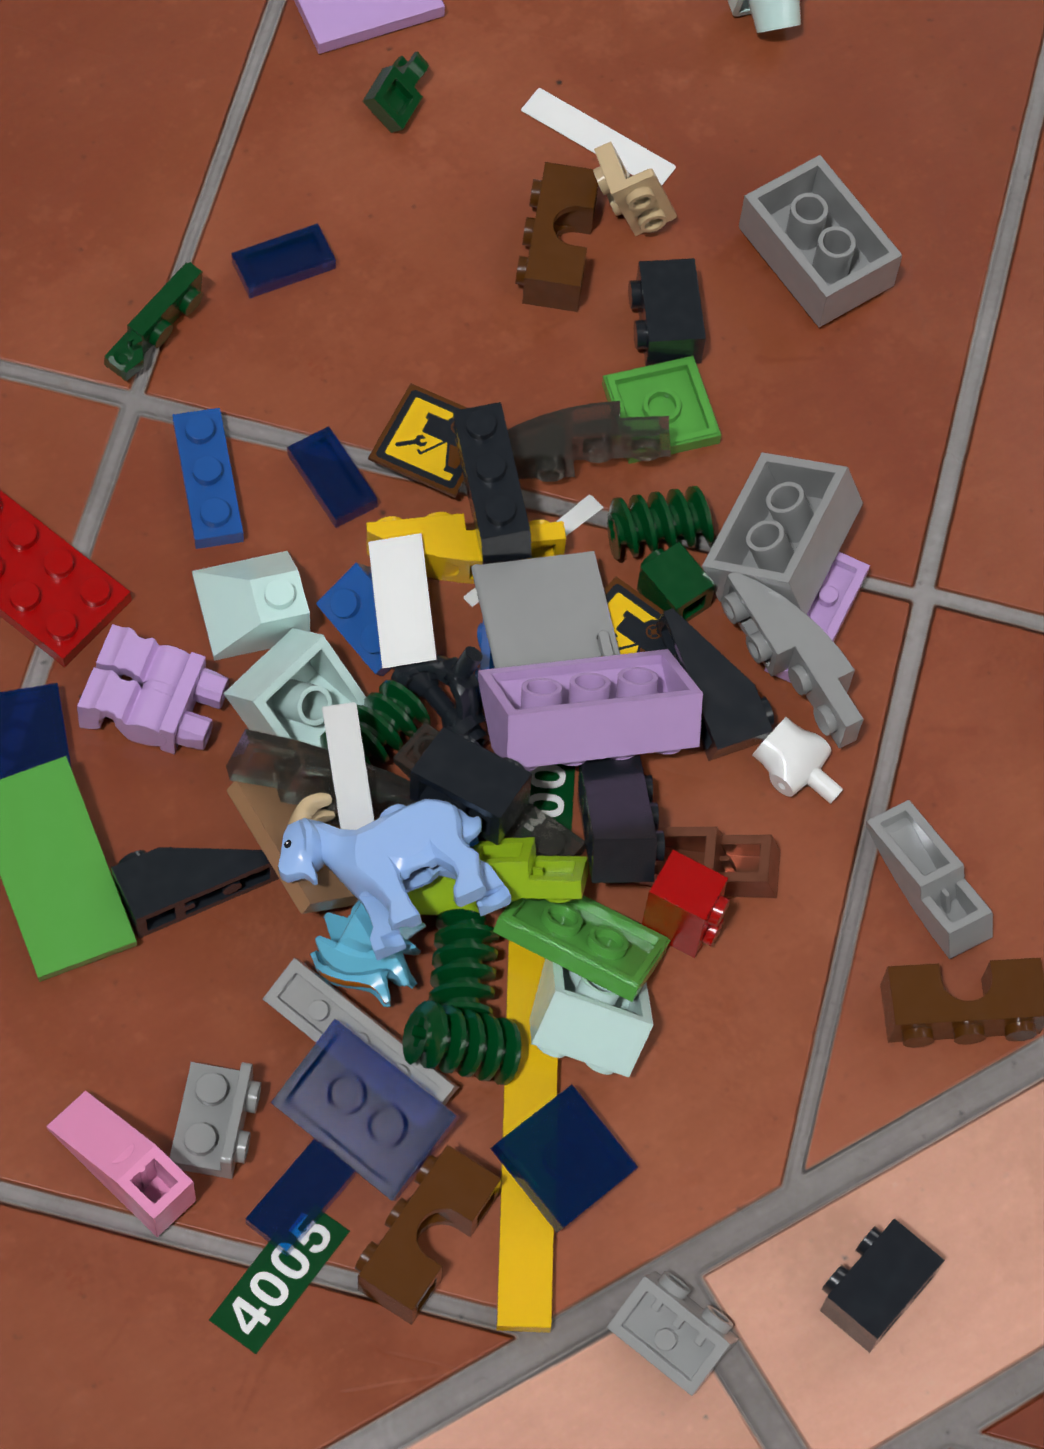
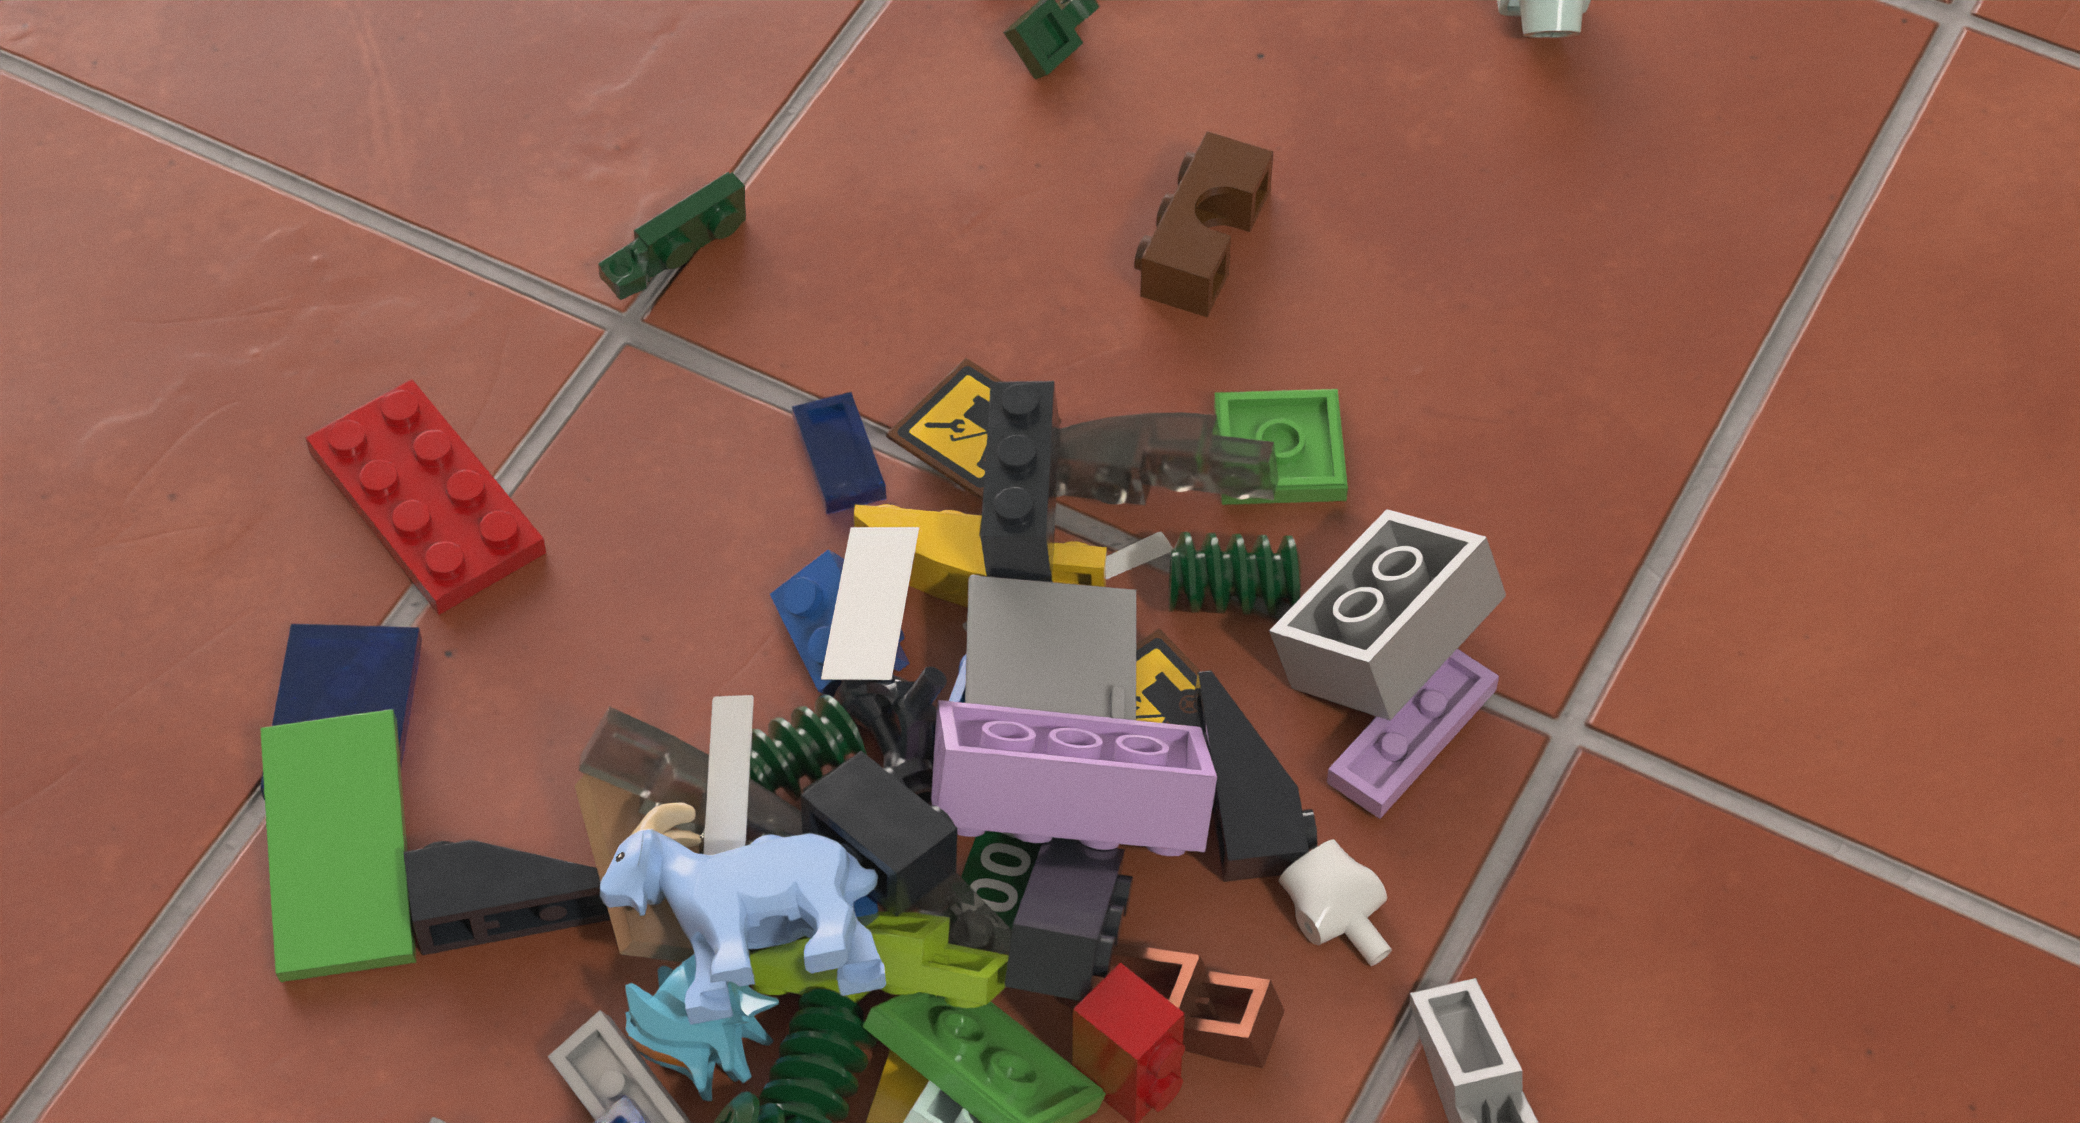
camera: 20 degrees right, 10 degrees down
(159, 698) = (537, 670): lavender hips -> none
(208, 478) = (684, 427): blue plate -> none
(251, 603) = (690, 584): light aqua slope -> none
(283, 260) = (856, 198): clear blue tile -> none
(290, 687) = (680, 681): light aqua slope -> none
(593, 134) = (1292, 126): white sticker -> none
(636, 196) = (1307, 182): tan bracket -> none
(668, 311) = (1318, 329): black brick -> none
(675, 582) = (1237, 651): dark green brick -> none
(791, 640) = (1368, 751): light grey slope -> none
(819, 240) = (1535, 279): light grey brick -> none

